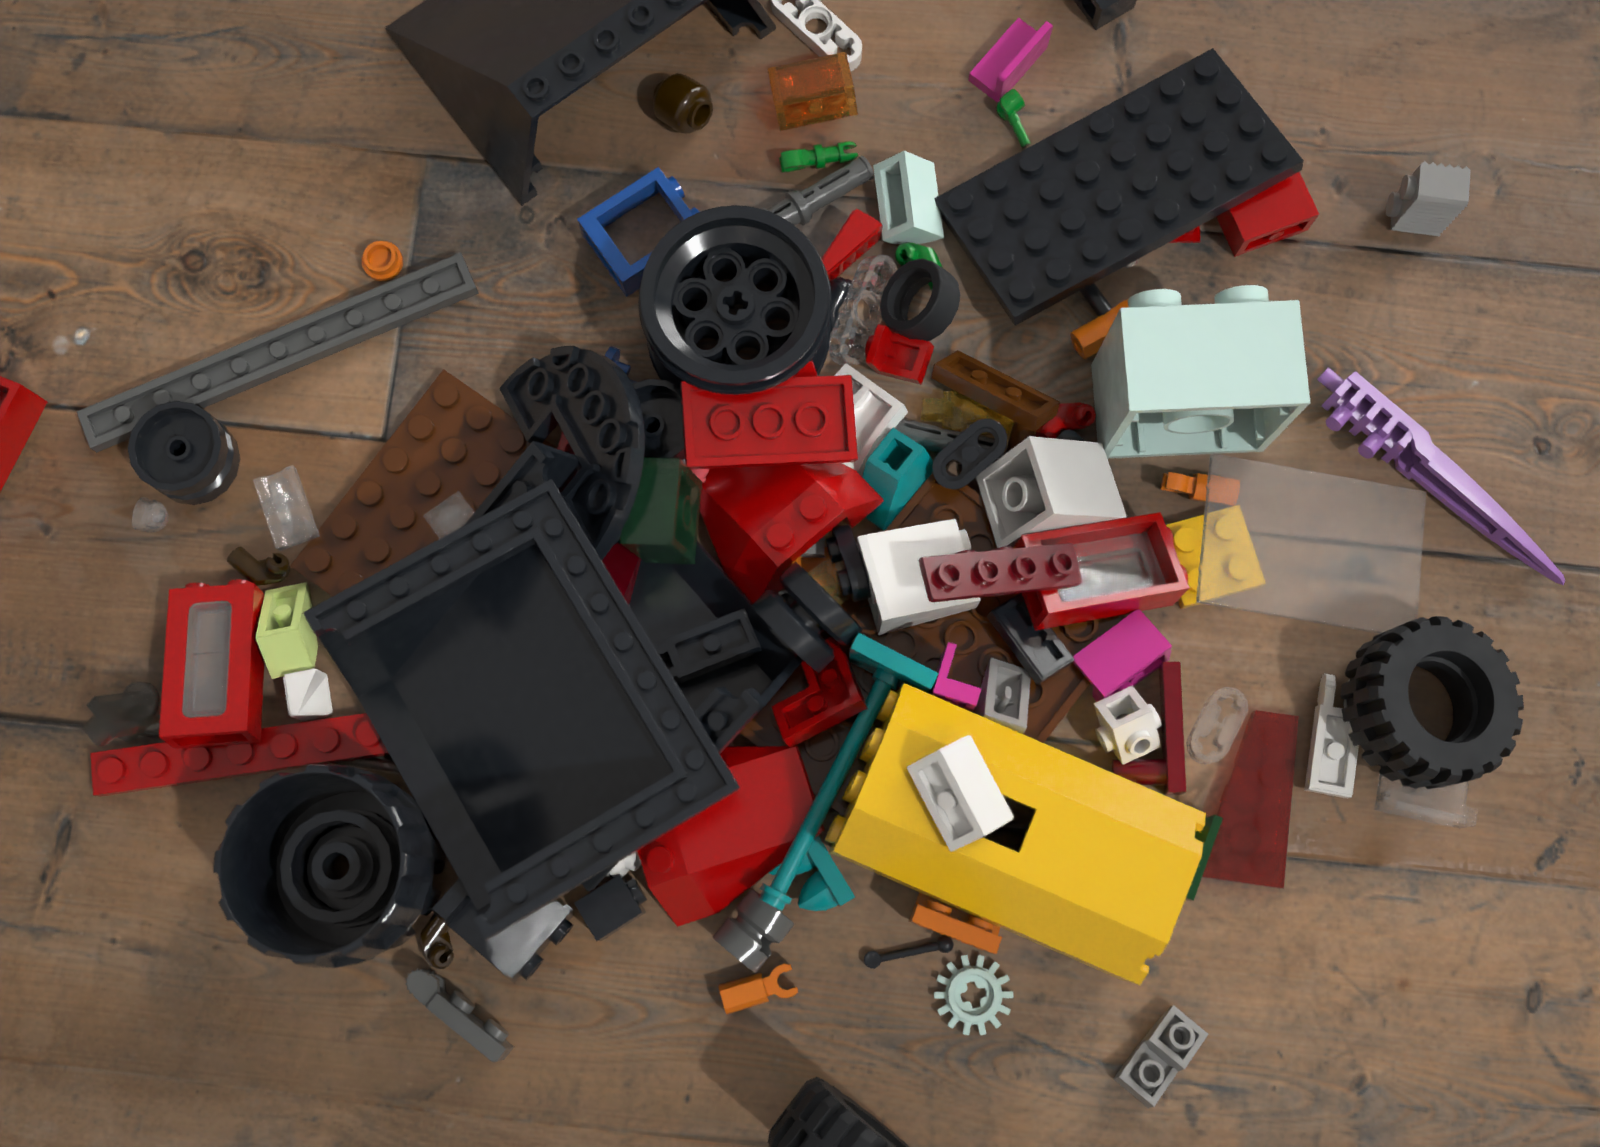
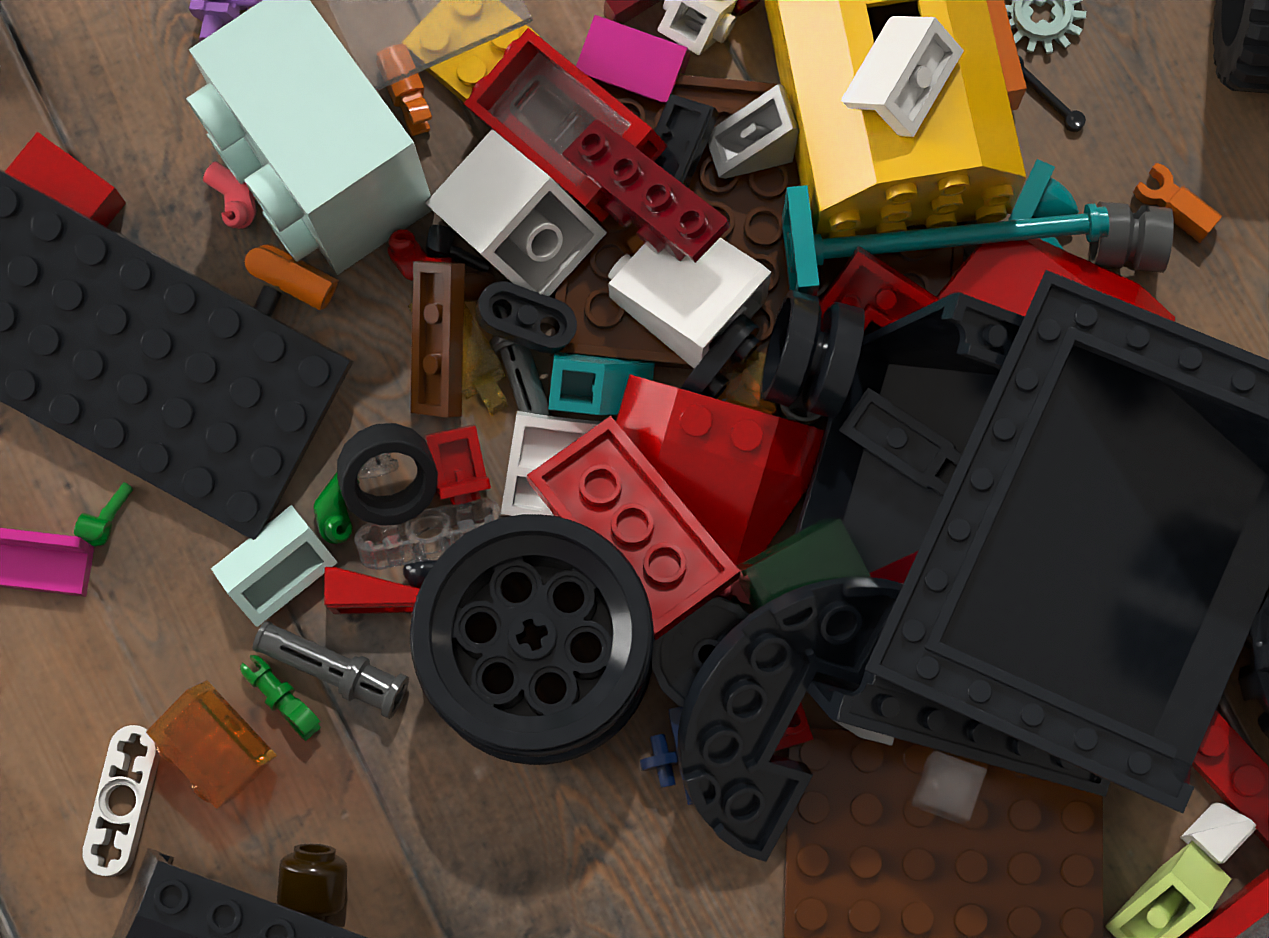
camera: 120 degrees left, 0 degrees up
(593, 222) = (539, 845): blue window -> none
(953, 691) = (766, 200): dark pink panel -> none

